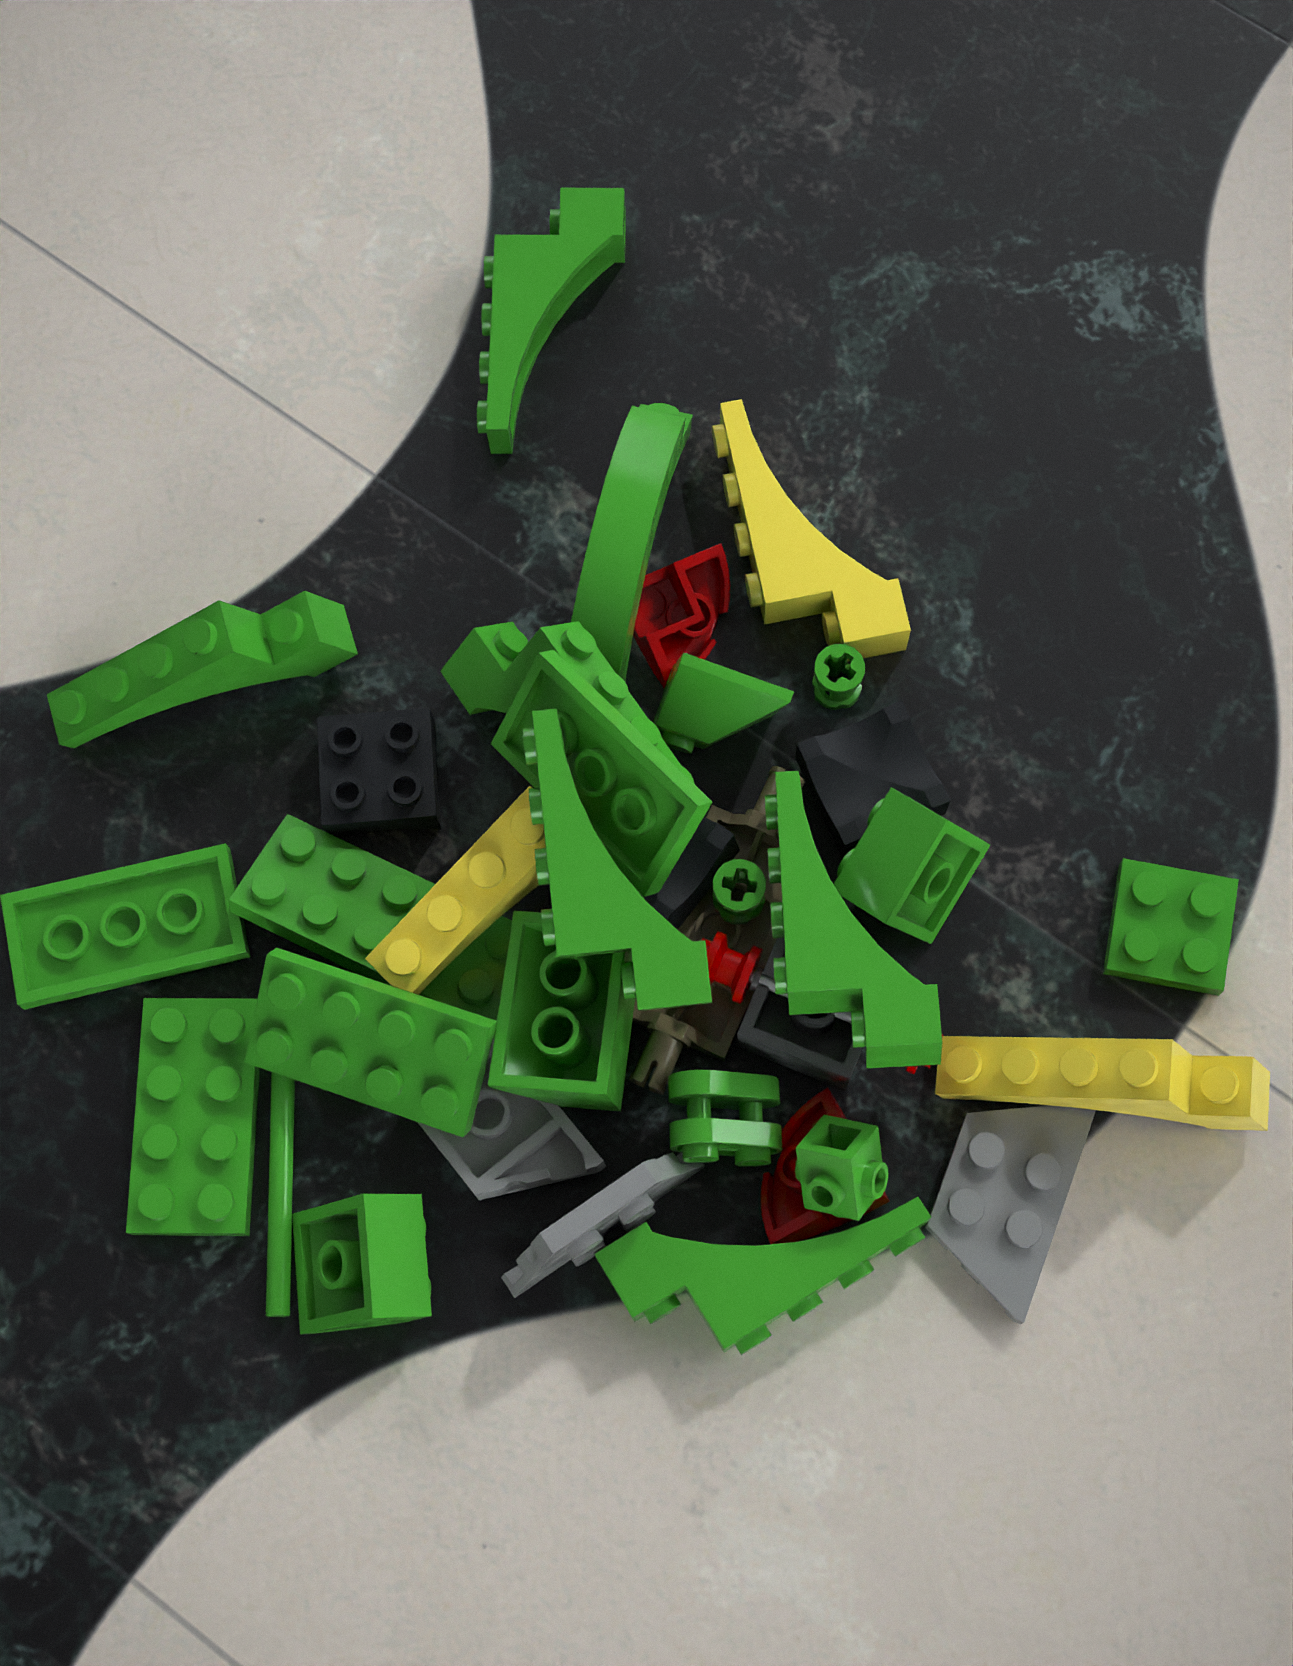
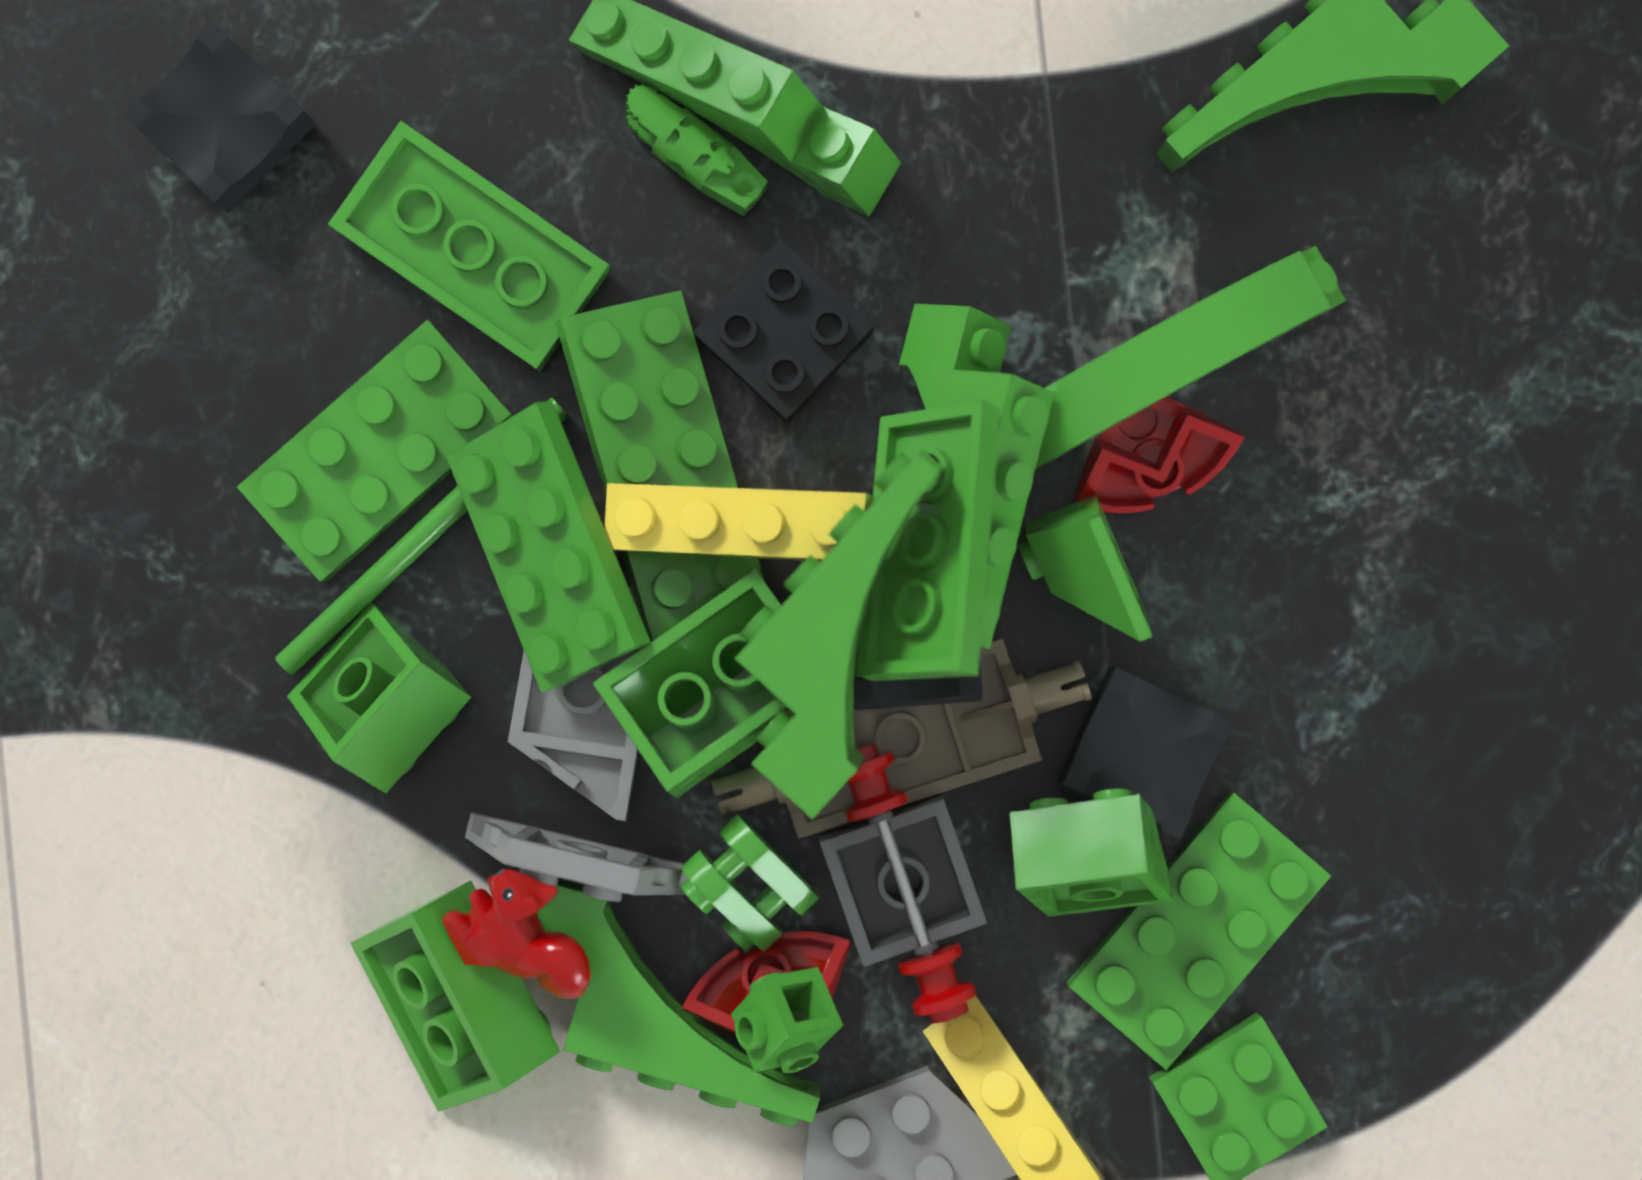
camera: 45 degrees right, 15 degrees up
(205, 726) = (694, 150): none -> bright green hinge
(611, 1305) = (510, 937): none -> red animal
(618, 1403) = (459, 1022): none -> bright green slope
(724, 883) = (961, 739): bright green bush -> none
(793, 562) = (1284, 508): light yellow arch -> none
(832, 662) = (1224, 658): bright green bush -> none
(832, 958) = (947, 867): bright green arch -> none
(1036, 876) = (1181, 959): none -> bright green plate

